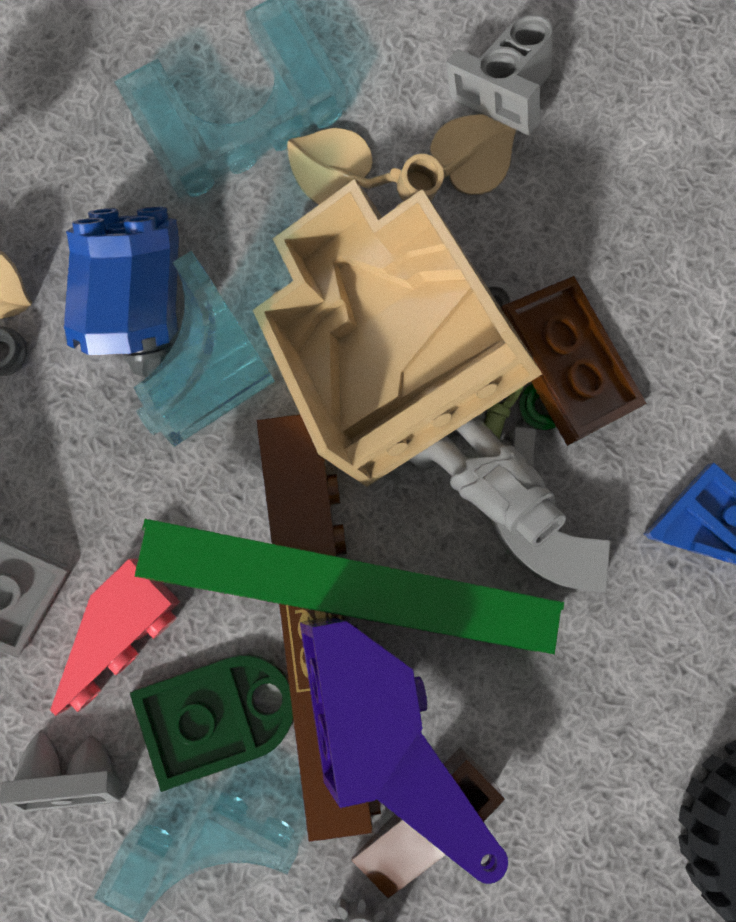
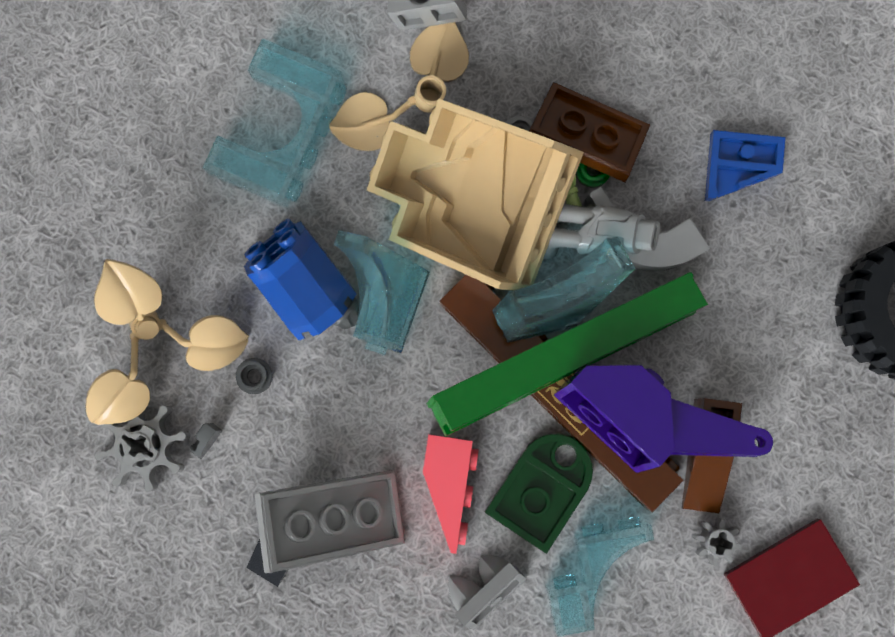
camera: 35 degrees left, 0 degrees up
(395, 521) = (565, 297): none -> clear light blue arch

